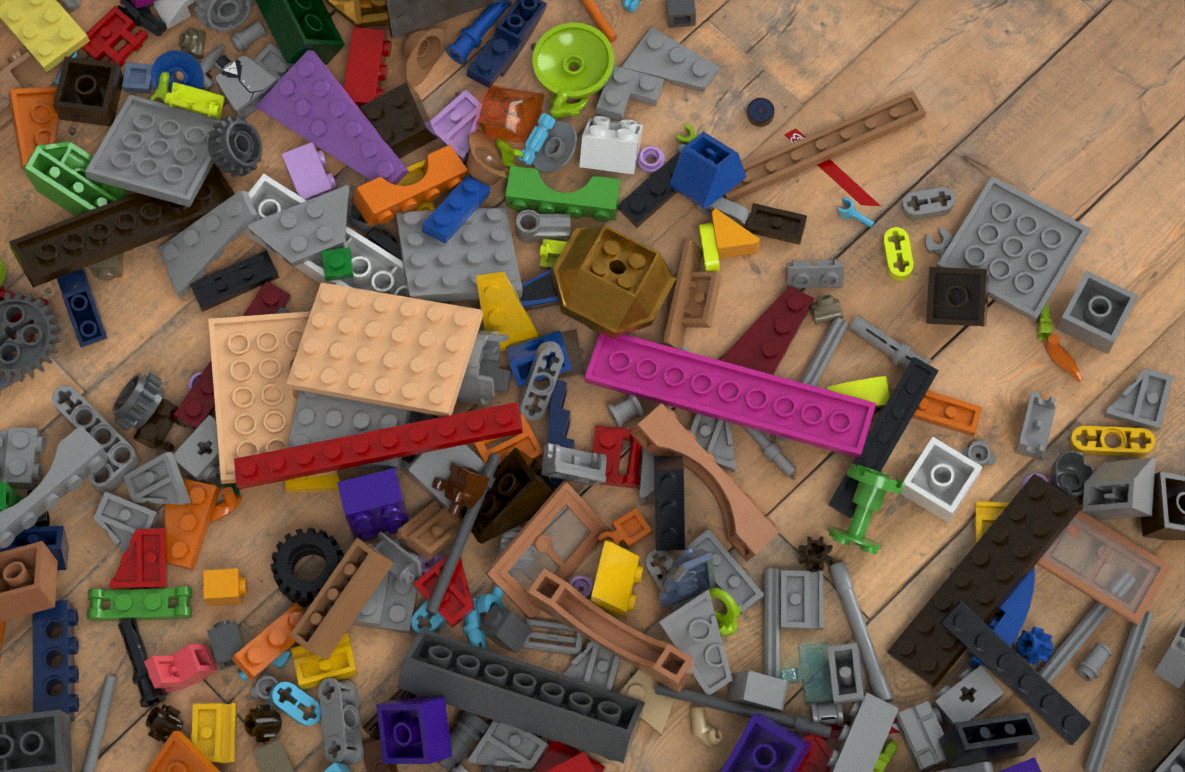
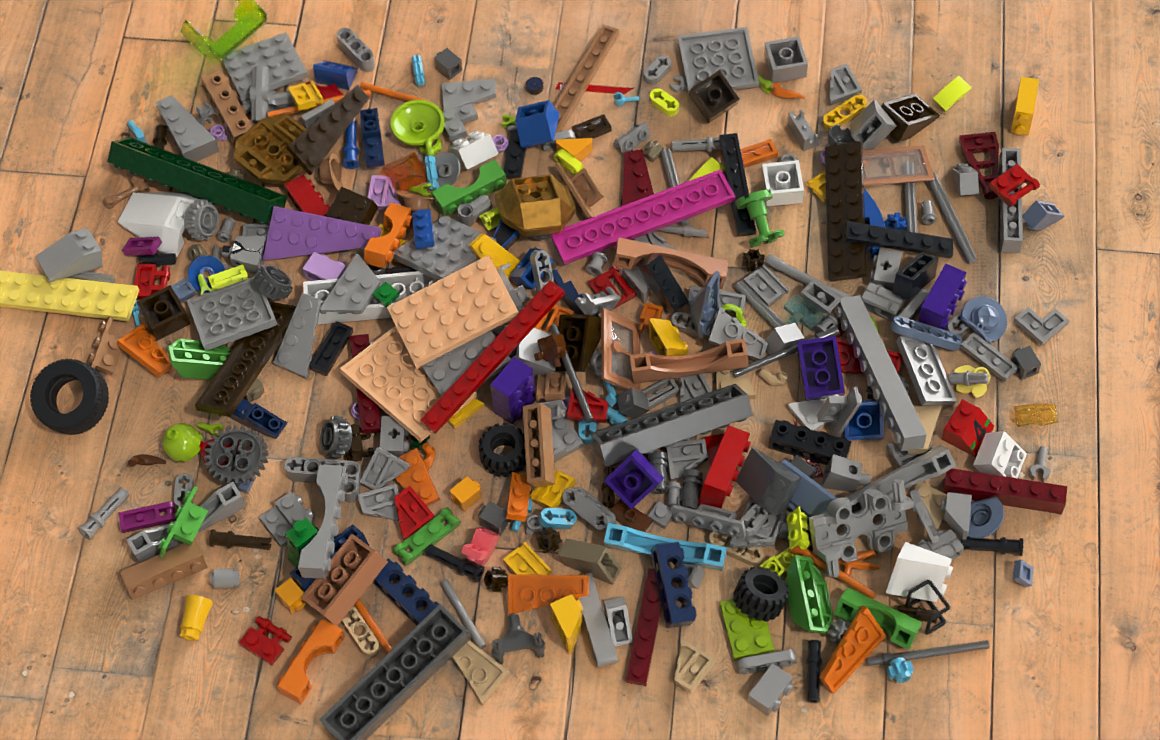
camera: 40 degrees left, 10 degrees down
(23, 278) = (210, 428): none -> lime piece

